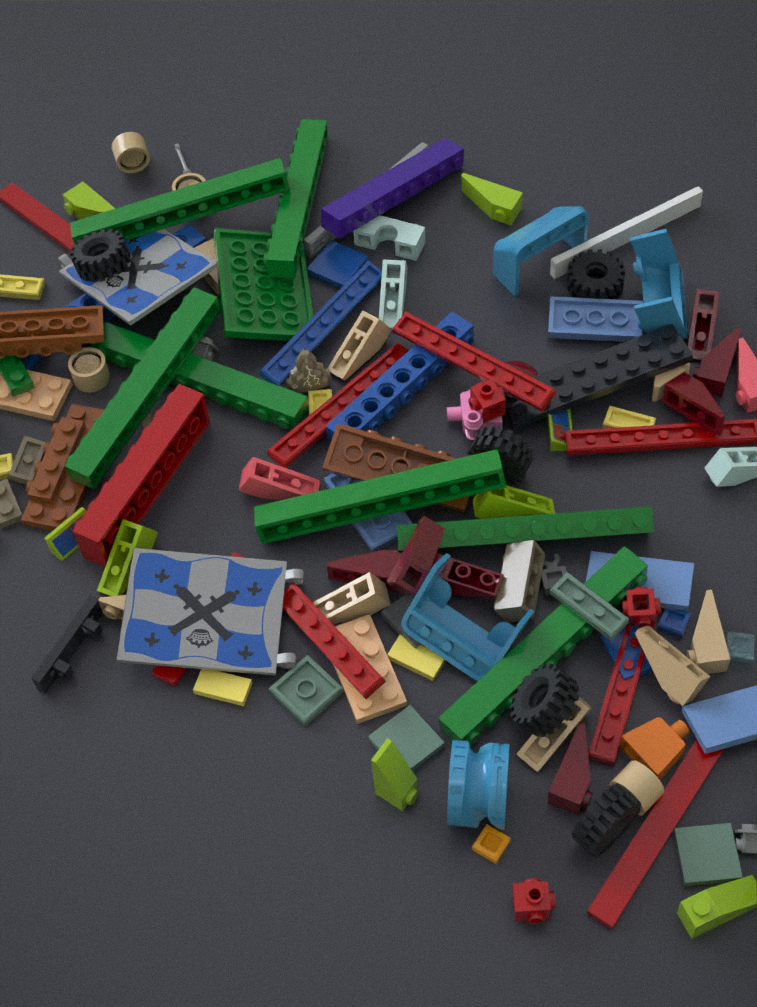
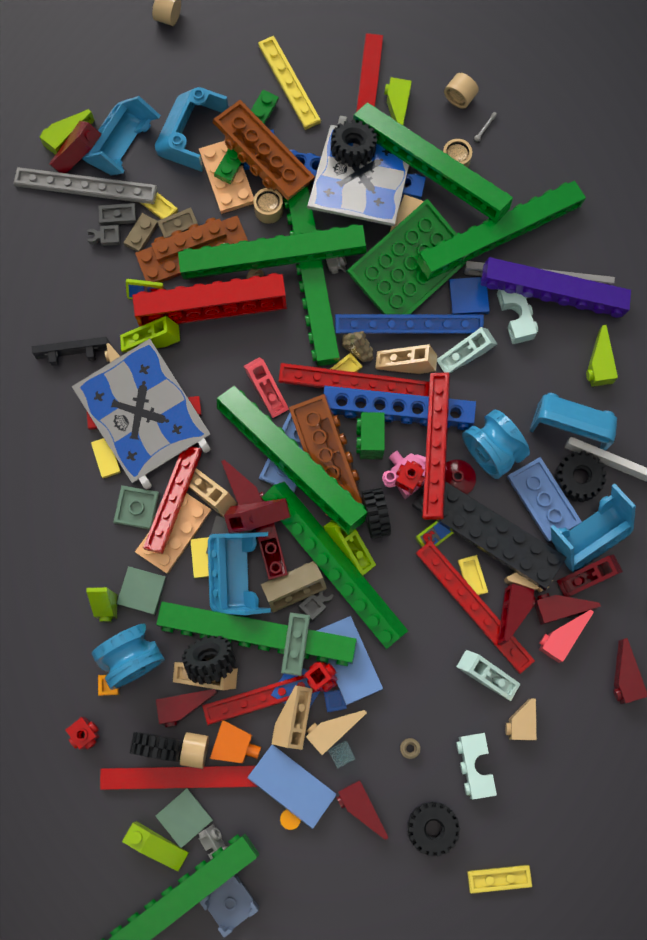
camera: 50 degrees right, 20 degrees up
(414, 415) = (372, 435): none -> green brick
(511, 314) = (496, 444): none -> dark azure piece

